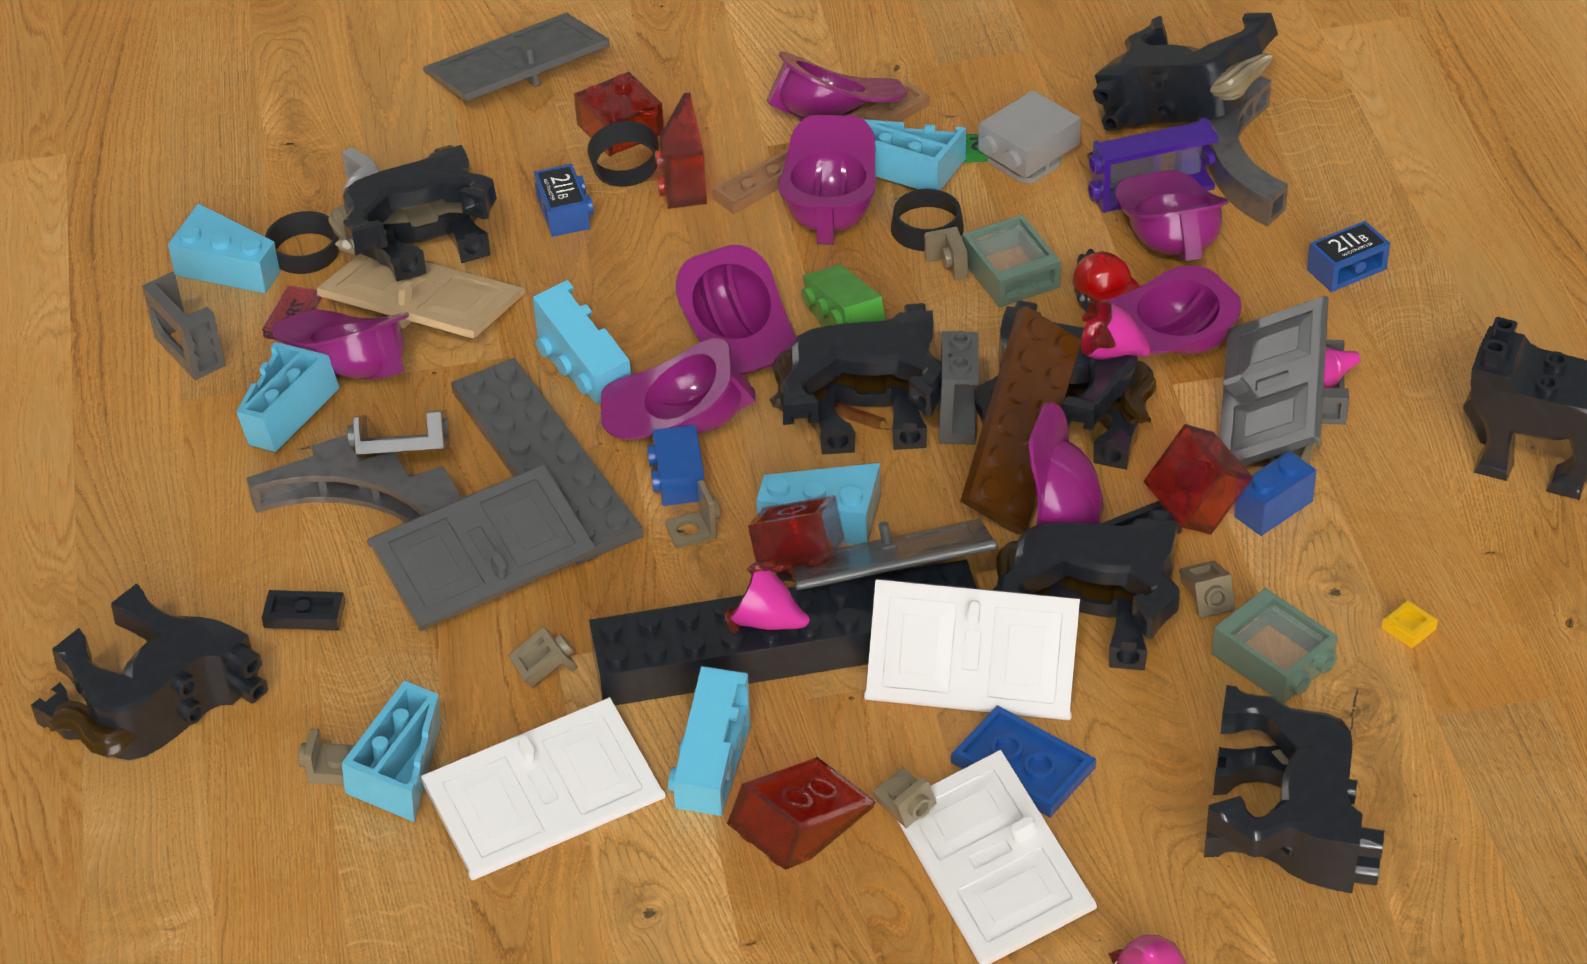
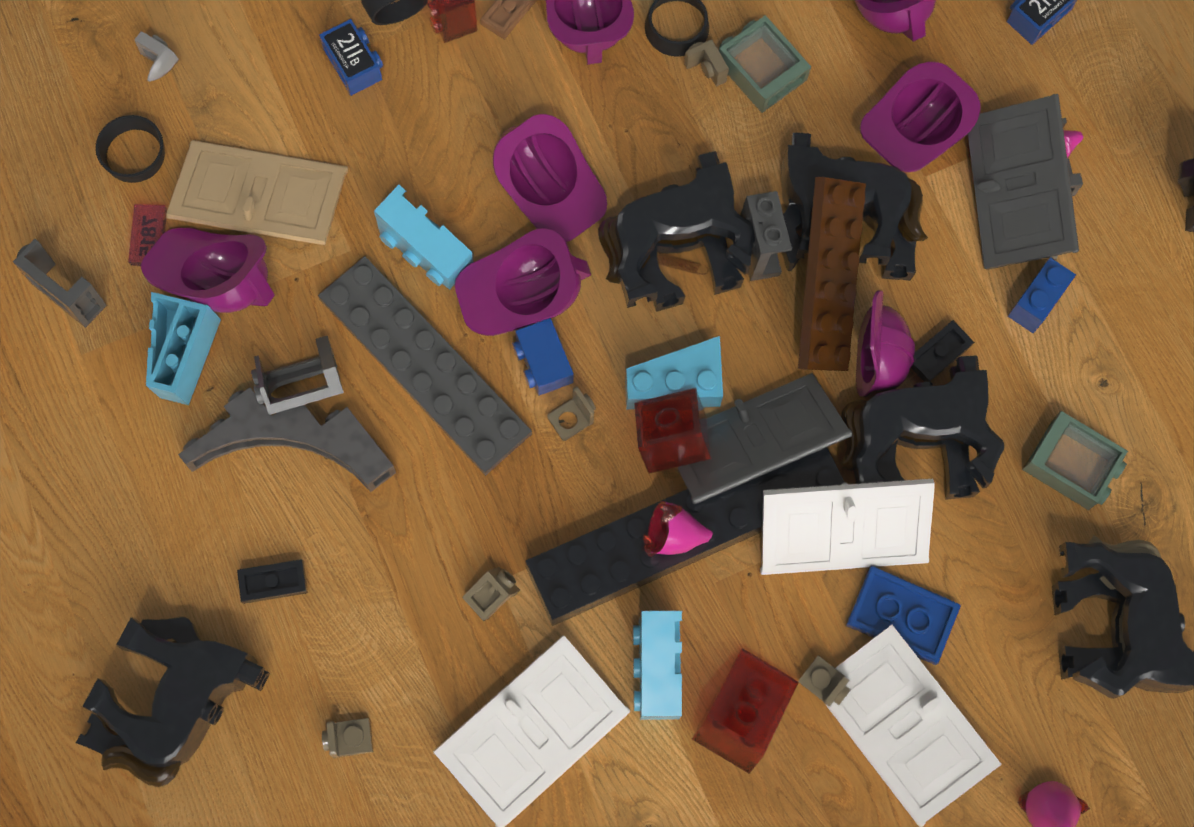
camera: 20 degrees left, 30 degrees up
(223, 252) = (61, 178): medium azure wedge -> none
(395, 752) = (404, 728): medium azure wedge -> none
(416, 205) = (223, 99): black piece -> none
(481, 546) = (407, 489): dark grey door -> none
(840, 297) = (638, 150): bright green wedge -> none
(1101, 278) = (849, 79): red hair -> none
(1111, 333) = (891, 174): hat -> none
(1198, 479) = (983, 303): clear red brick -> none
(1210, 587) = (1009, 404): dark tan bracket -> none
(1409, 624) = (1169, 409): yellow tile -> none

